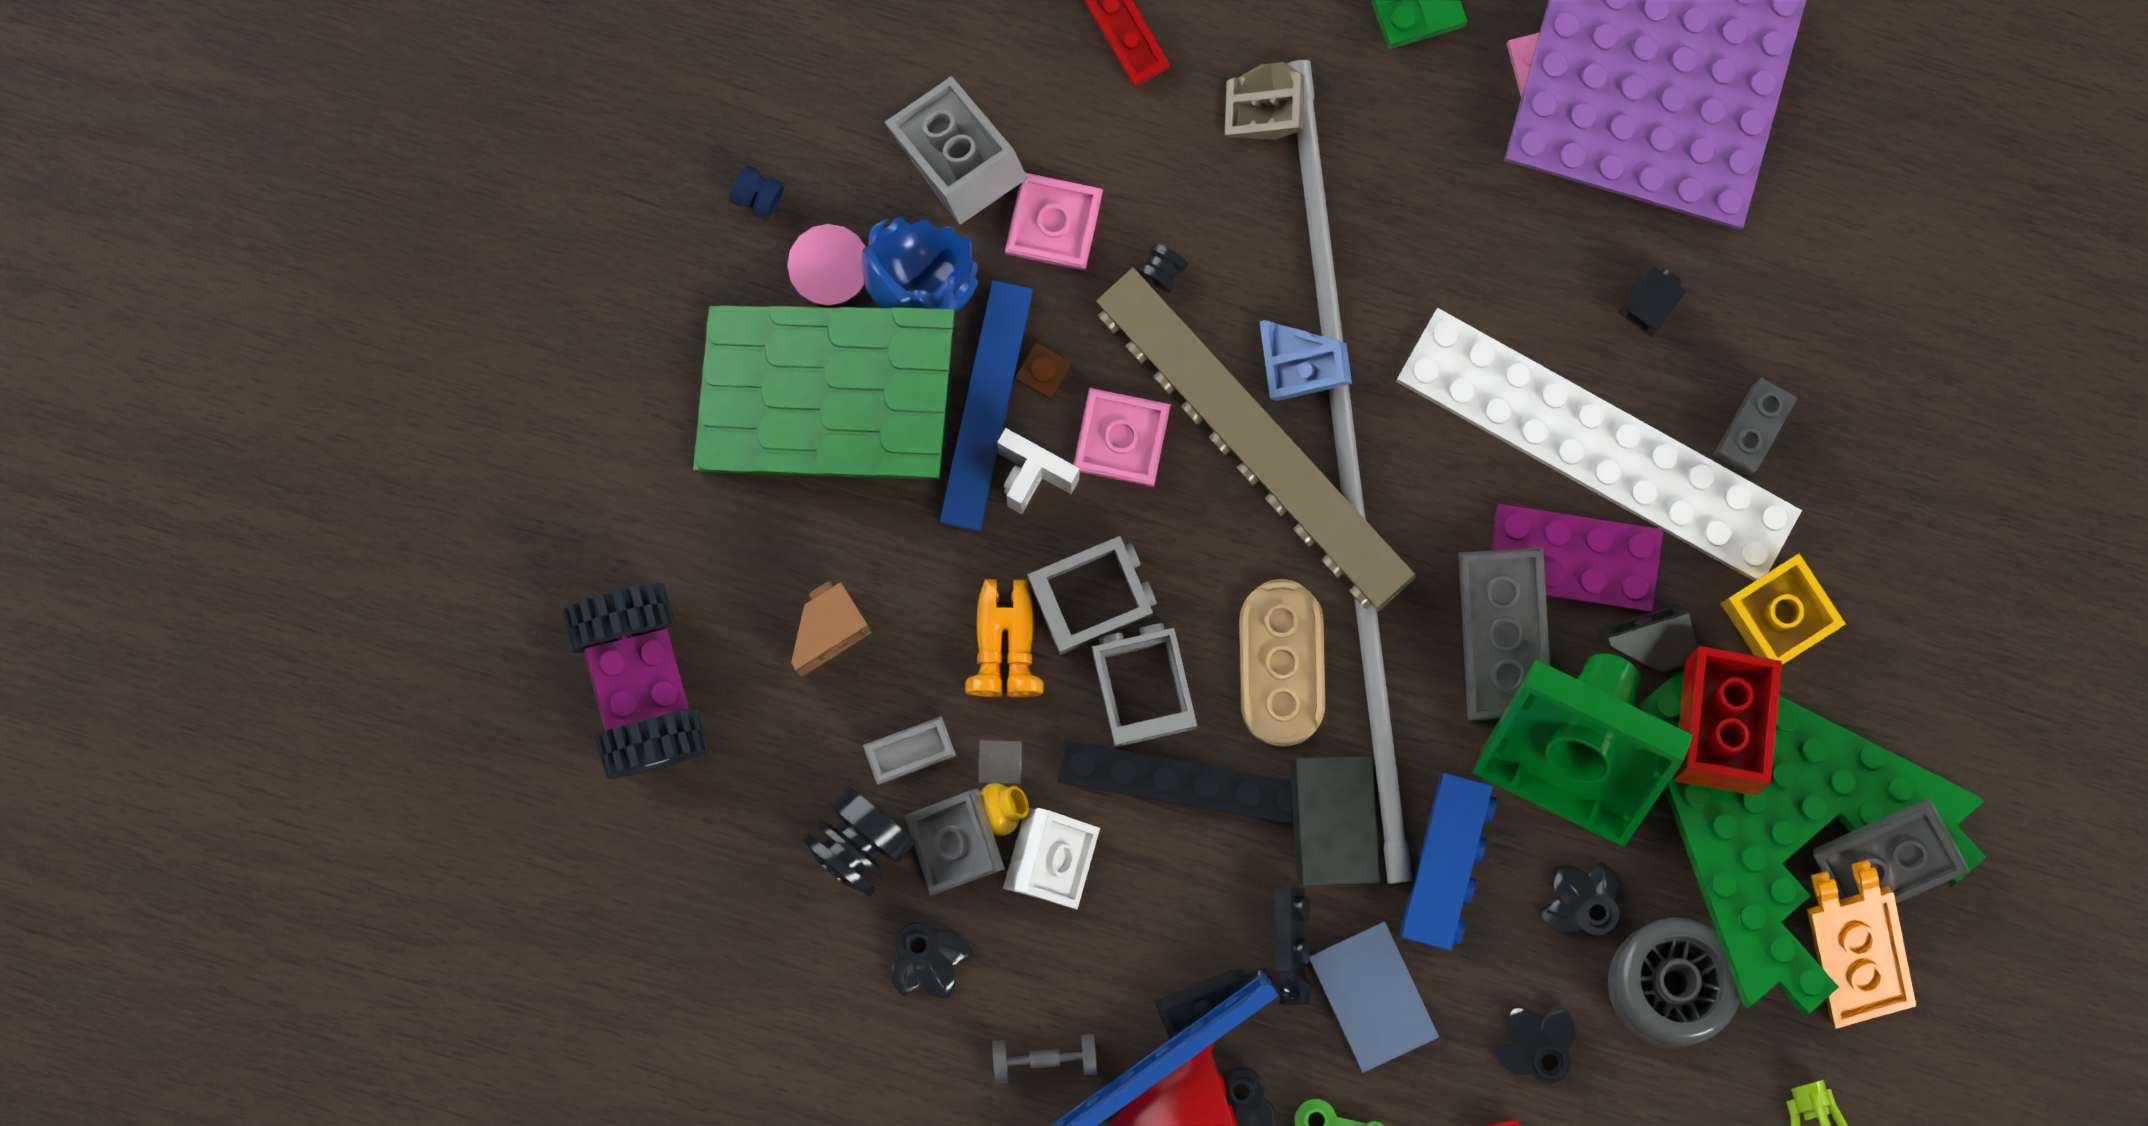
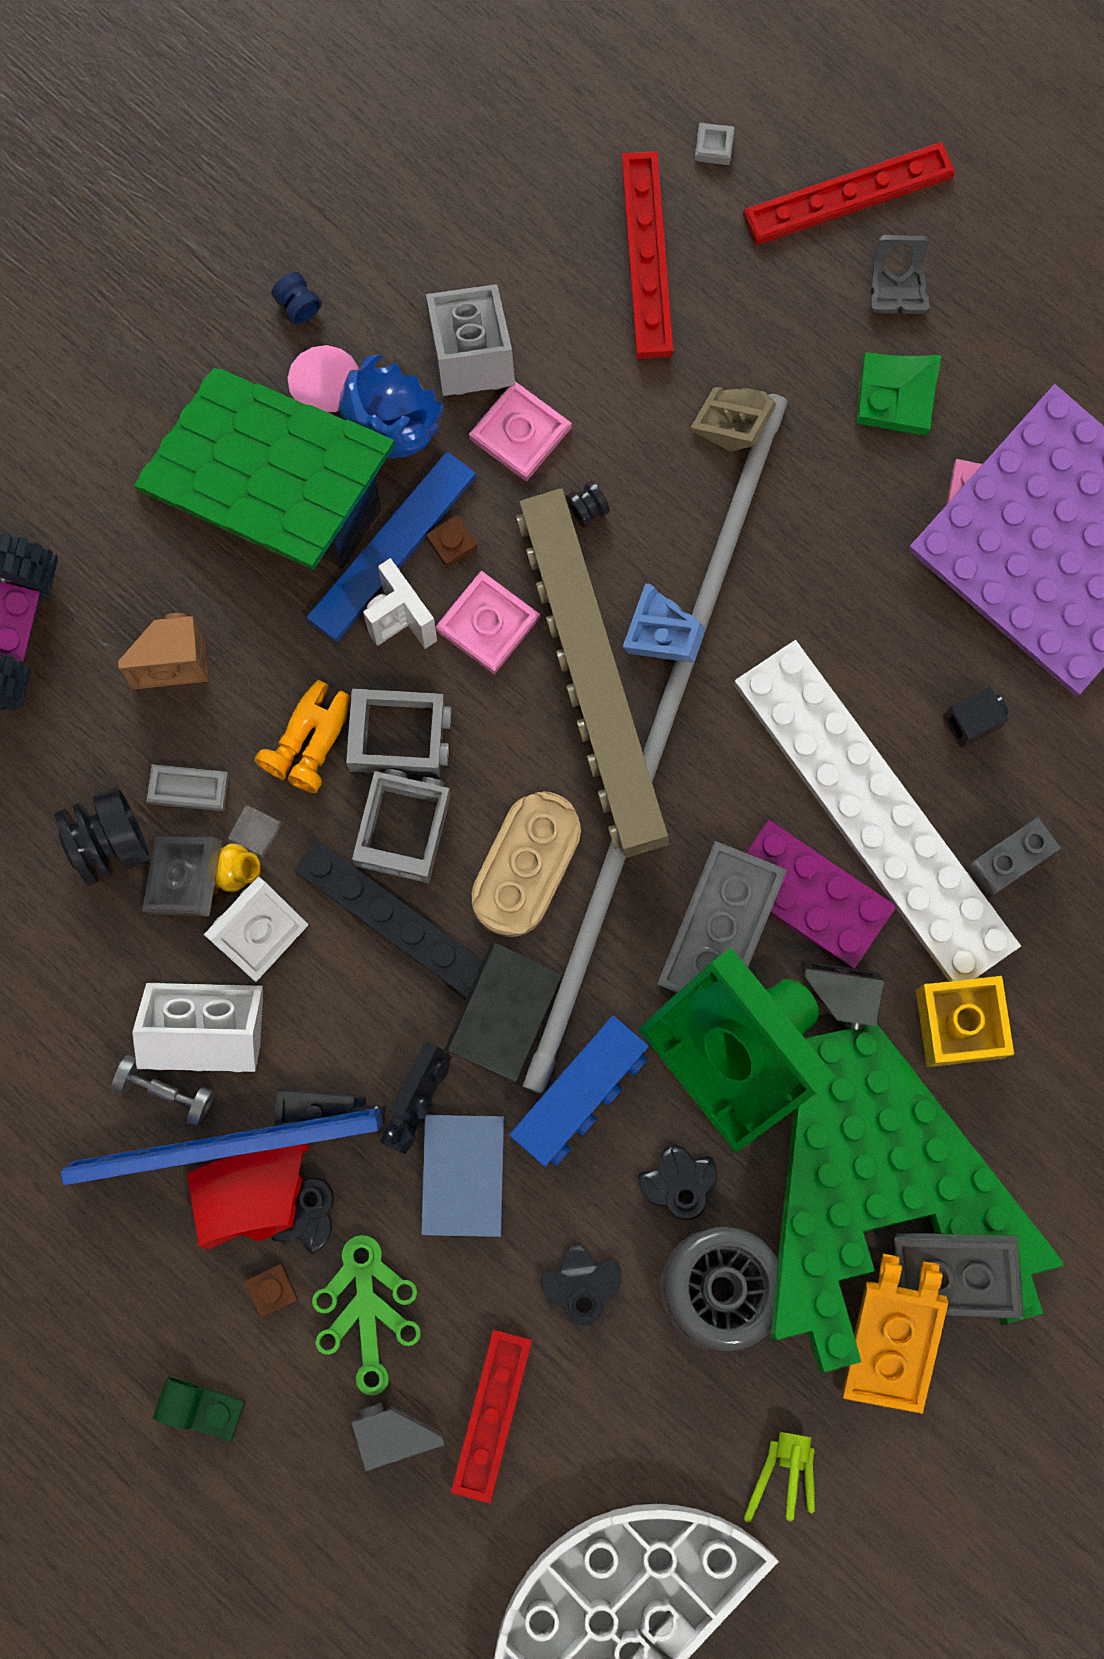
camera: 25 degrees right, 5 degrees down
(931, 965) = (114, 968): black plate -> none
(1047, 979) = (198, 1027): none -> white slope
(1732, 714) = (874, 1085): red brick -> none

